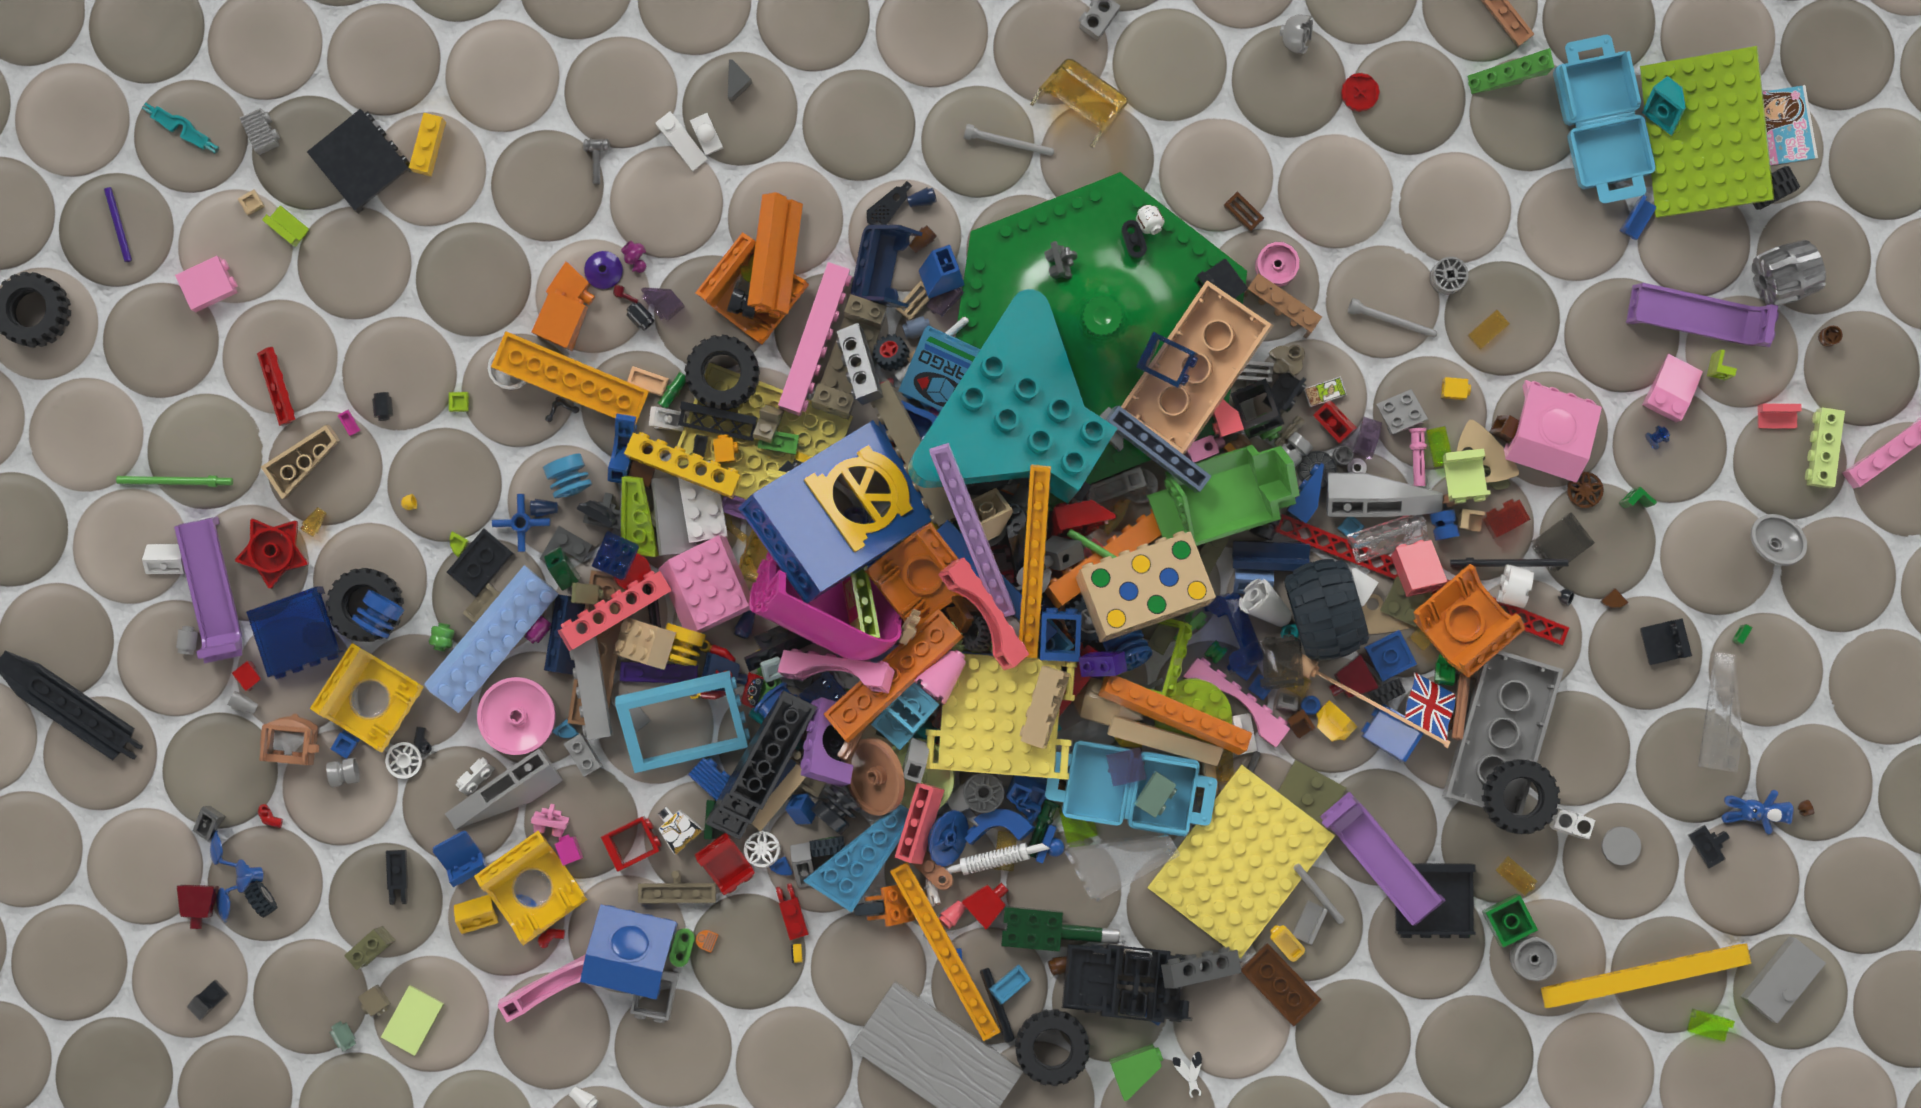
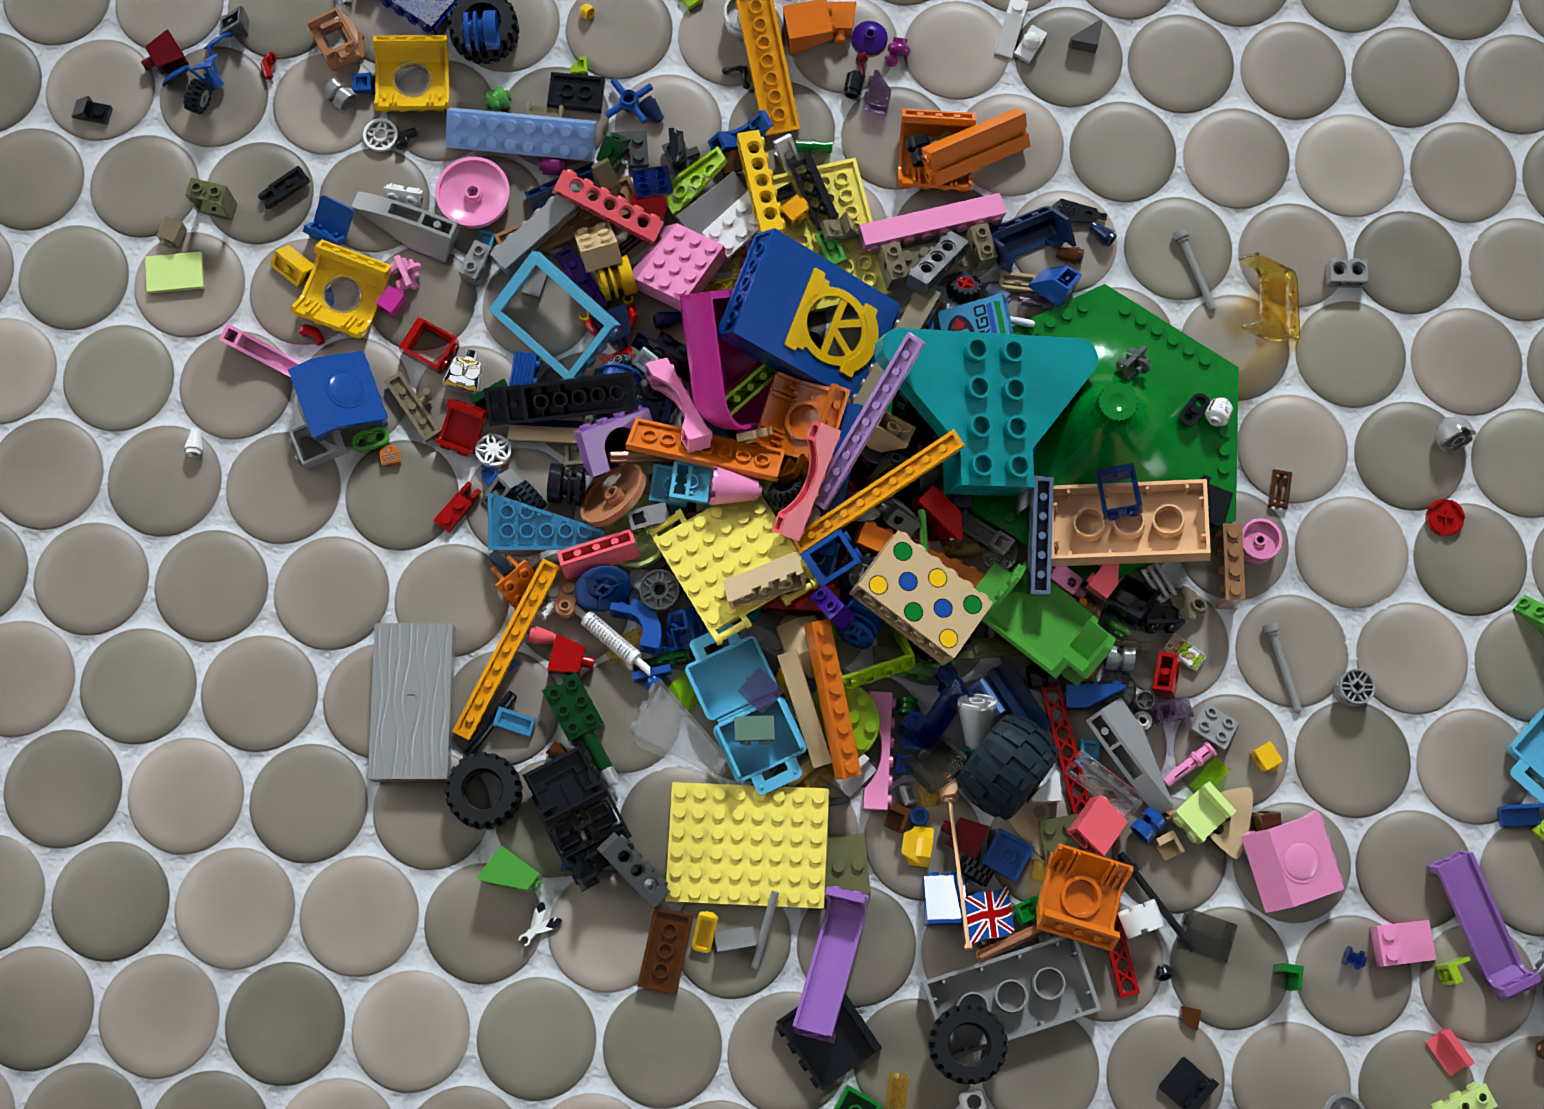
camera: 50 degrees right, 10 degrees down
(342, 1035) = (127, 227): sand green brick -> none
(567, 475) = (690, 108): dark azure wheel -> none
(652, 382) = (808, 125): light nougat tile -> none
(722, 346) = (855, 146): black tyre -> none
(796, 952) = (425, 533): yellow piece -> none
(800, 809) = (545, 456): blue panel -> none
(1488, 329) = (1335, 753): clear yellow tile -> none
(1506, 518) = (1191, 873): clear red brick -> none
(1585, 490) = (1263, 927): reddish brown wheel -> none

